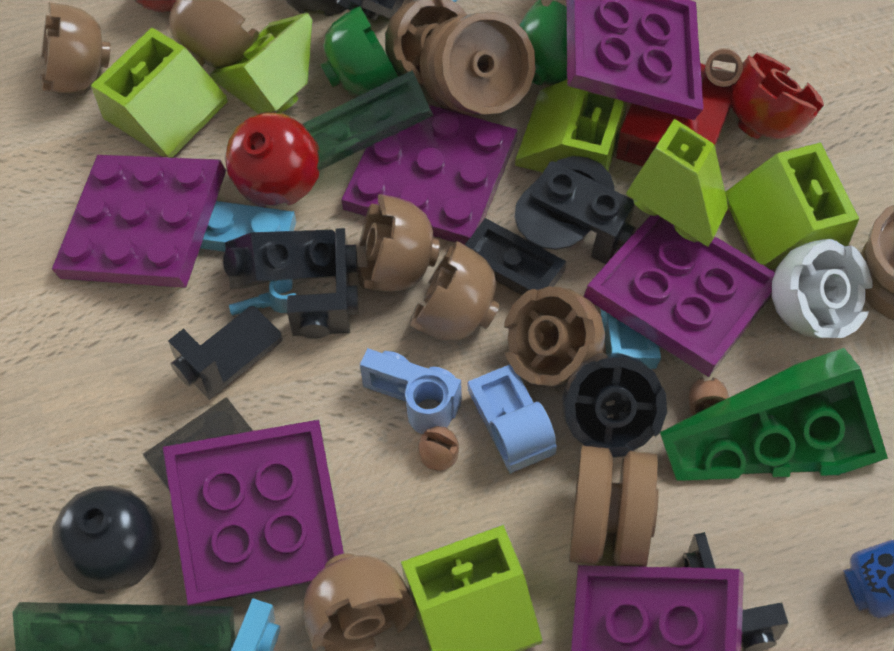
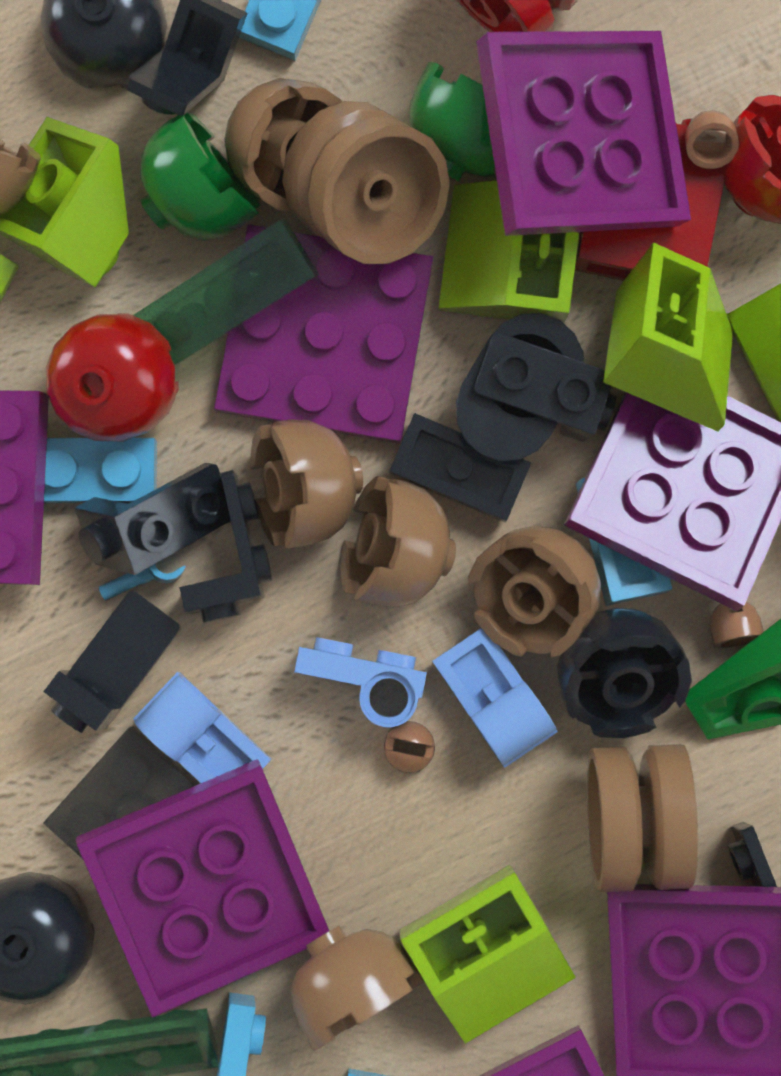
camera: 15 degrees left, 25 degrees up
(272, 398) = (196, 731): none -> light blue plate

